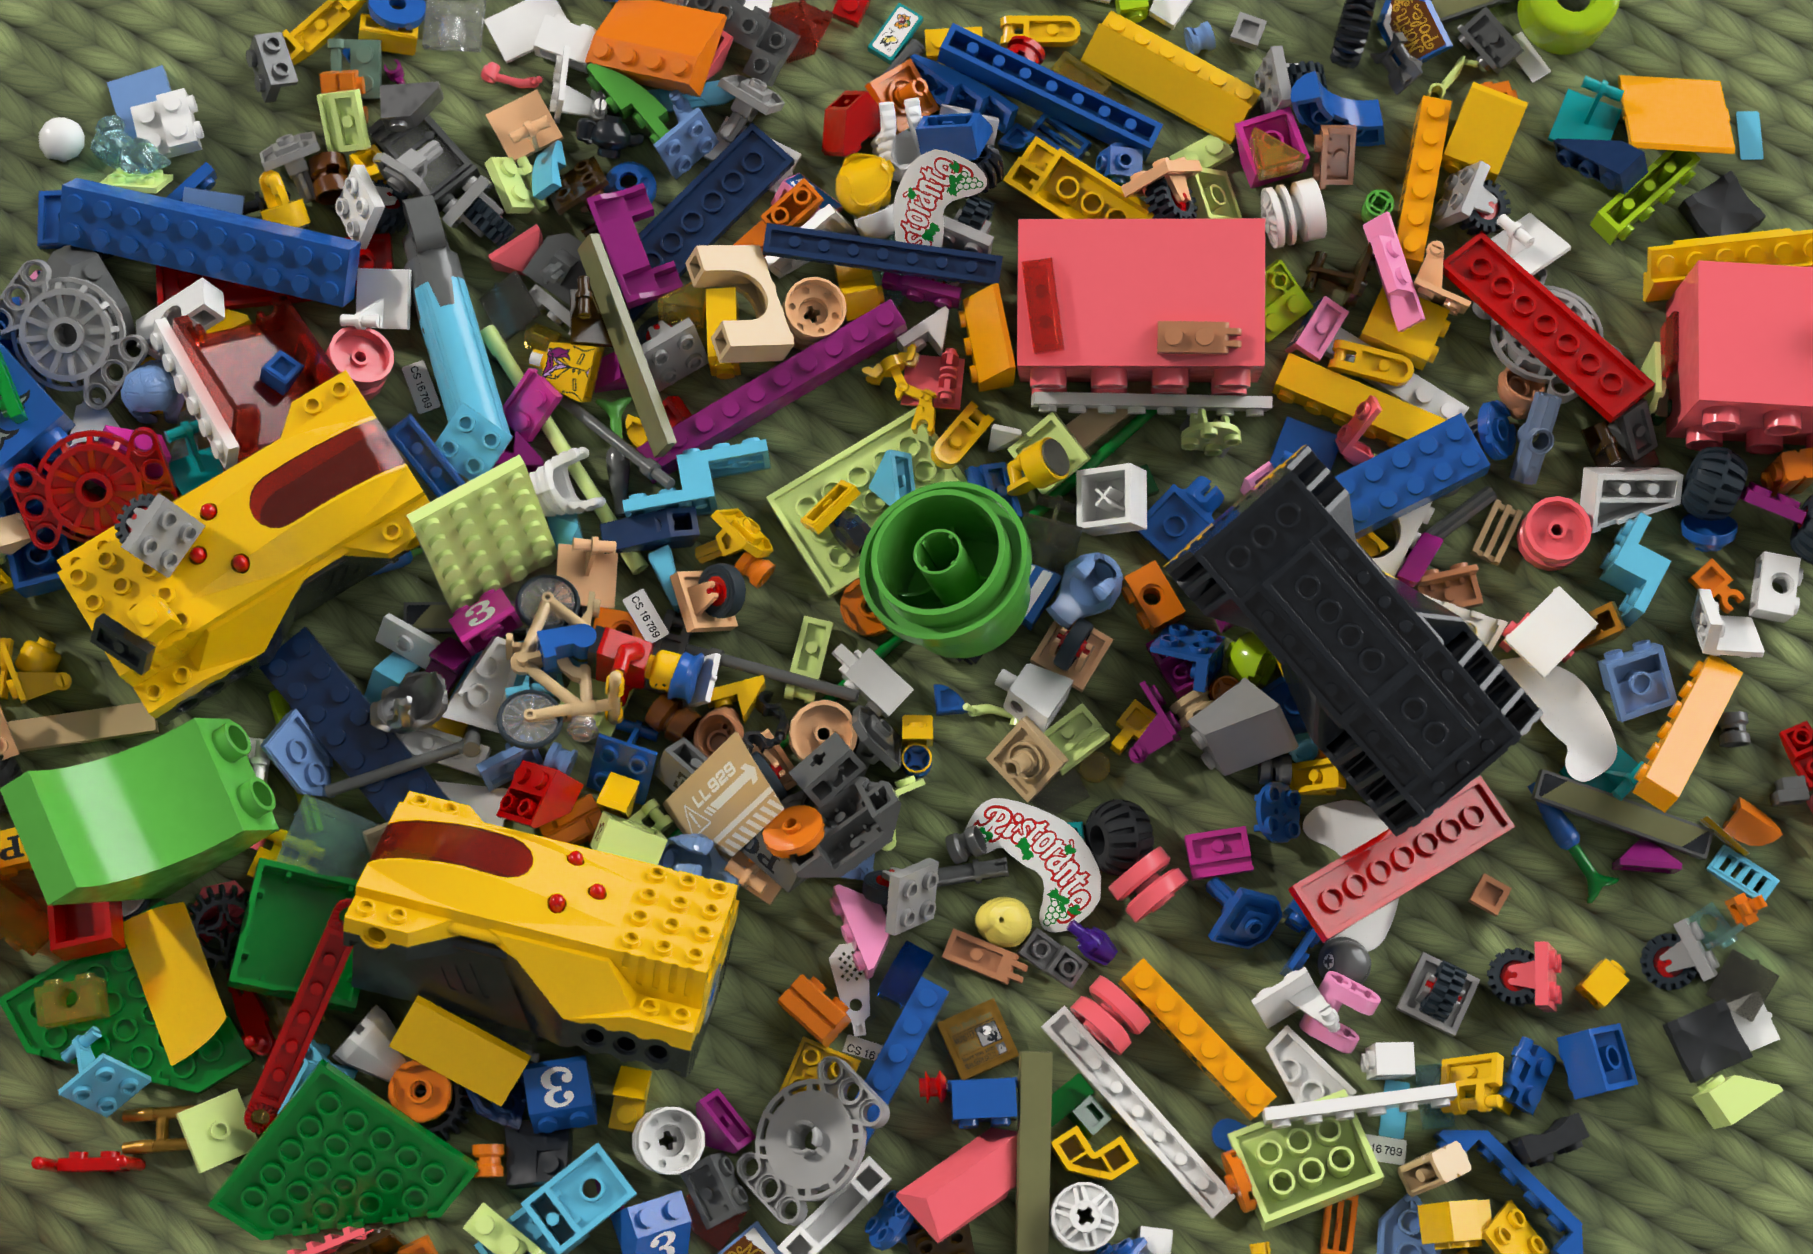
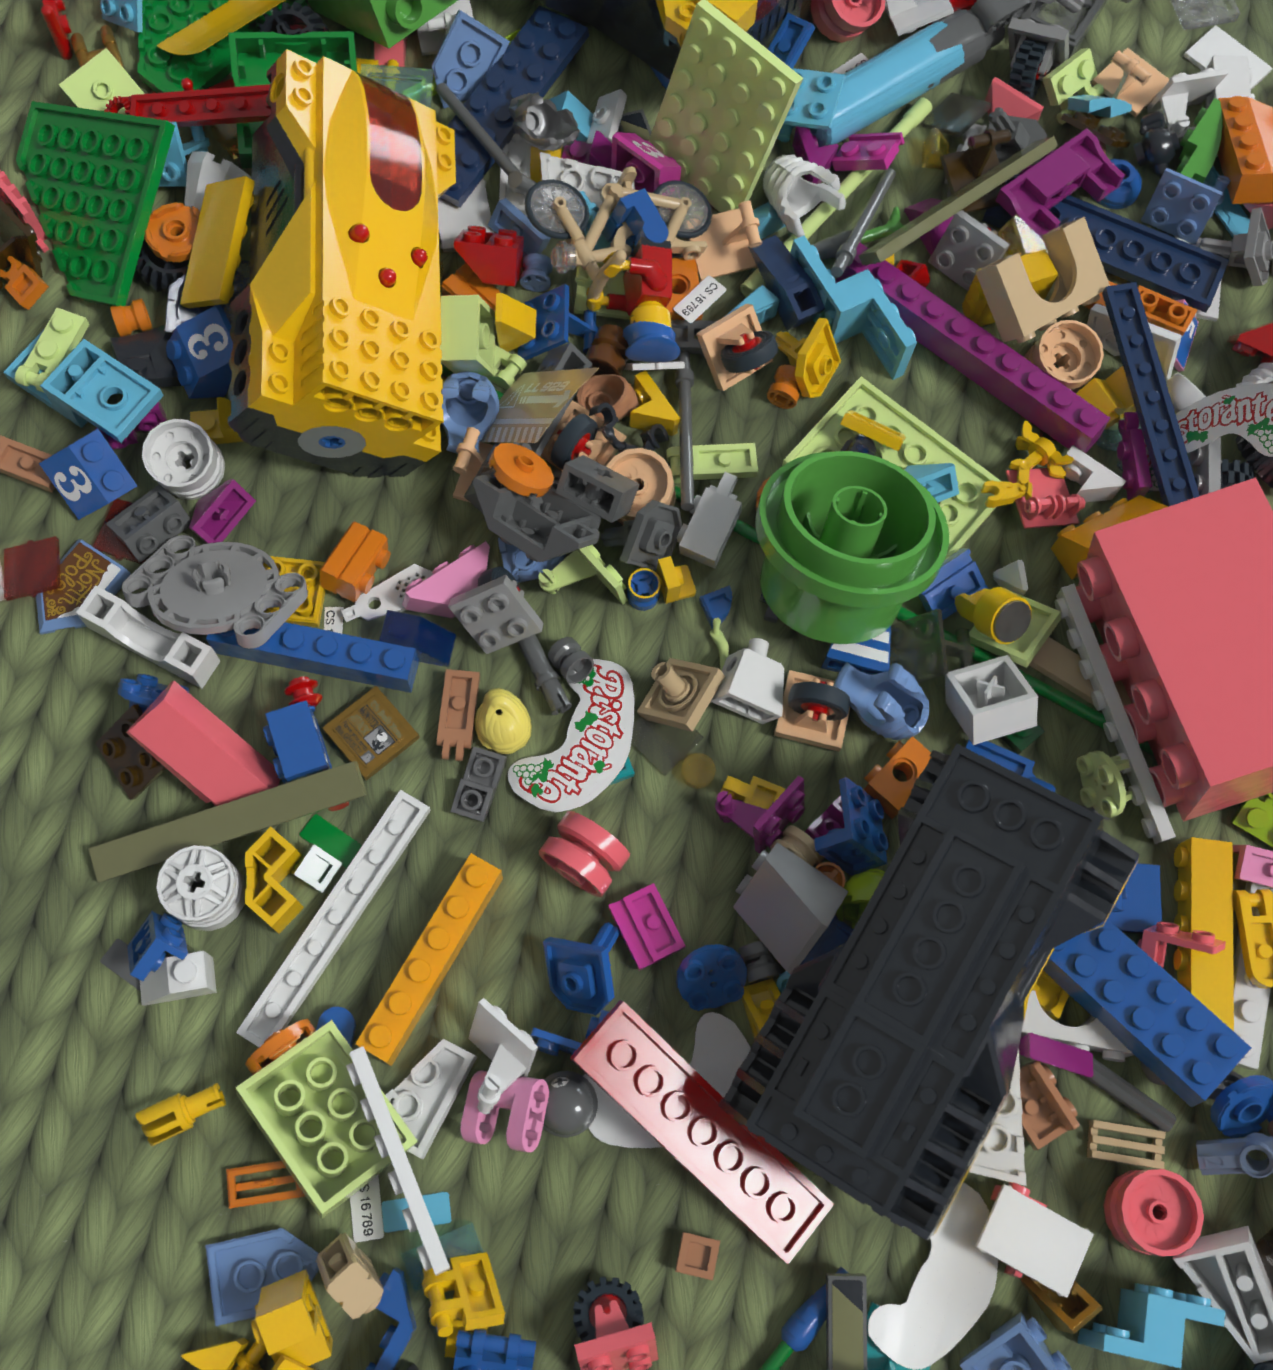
camera: 65 degrees right, 5 degrees down
(491, 74) = (1167, 45): coral piece -> none
(569, 368) = (917, 175): yellow torso -> none
(864, 184) = (1217, 368): yellow helmet -> none
(960, 437) = (996, 534): yellow plate -> none
(1042, 306) = (1171, 531): clear red tile -> none
(1077, 736) = (721, 739): yellowish green plate -> none
(1093, 943) = (506, 820): dark purple piece -> none
(1110, 1015) = (428, 853): coral wheel -> none
(1118, 835) = (632, 811): black wheel -> none
(1196, 337) = (1209, 700): nougat hinge -> none
(1388, 1061) = (462, 1183): white brick -> none
(1438, 994) = (561, 1226): plate -> none

